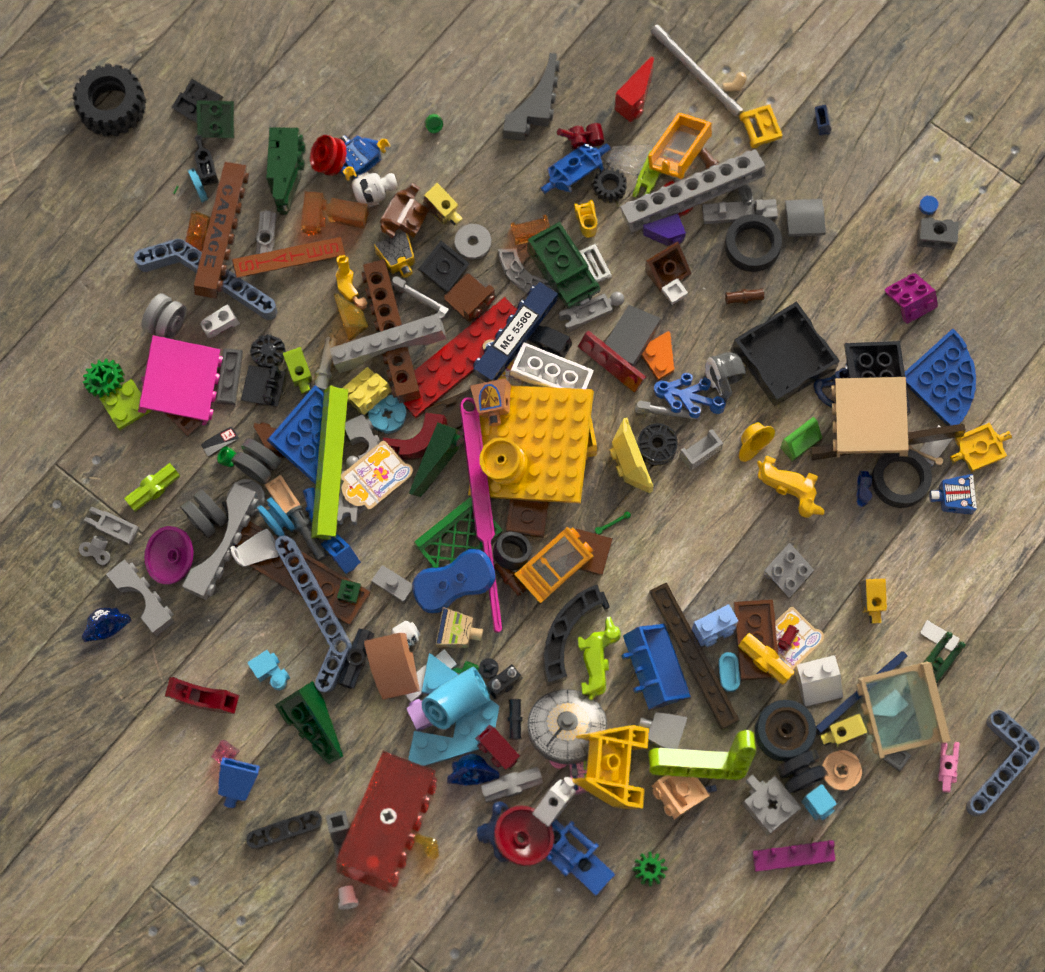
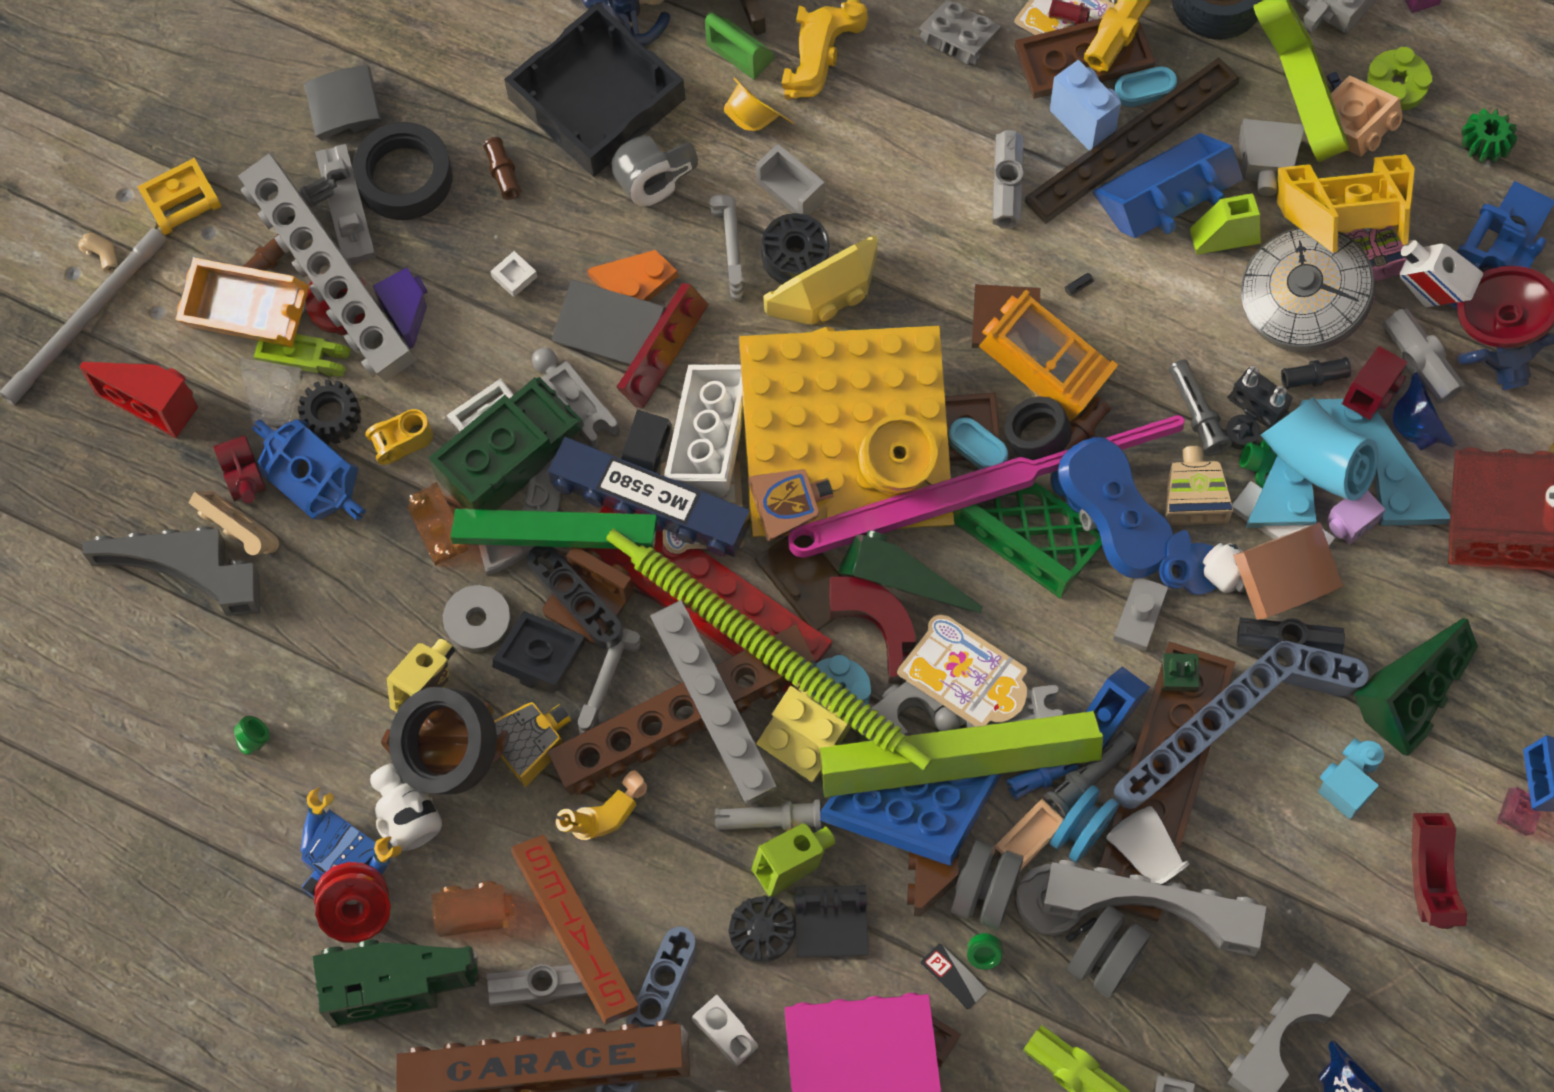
camera: 100 degrees left, 5 degrees down
(168, 555) = (1215, 1012): magenta dish -> none
(229, 376) = (825, 986): dark grey tile -> none
(347, 213) = (462, 844): clear orange brick -> none
(351, 317) = (673, 788): clear yellow slope -> none
(401, 218) = (405, 733): none -> black tyre
(417, 615) = (1188, 561): none -> blue plate
(434, 349) = (765, 647): none -> lime hose
(469, 287) = (579, 592): none -> black beam
(498, 647) = (1203, 422): none -> dark grey pin
(505, 280) = (550, 528): none -> green tile
(511, 517) = (976, 443): none -> medium azure tile
(563, 120) = (235, 523): none -> tan plate
(564, 622) = (1155, 326): black brick -> none
(594, 657) = (1181, 273): lime animal -> none
(598, 530) = (962, 314): green hinge -> none
(619, 692) = (1227, 225): none -> lime slope
(665, 570) = (1008, 195): none -> light grey piece
(667, 266) = (471, 292): reddish brown slope -> none
(667, 390) = (701, 219): blue plant -> none
(699, 838) = (1405, 64): none -> lime plate
(824, 129) = (156, 103): dark blue piece -> none

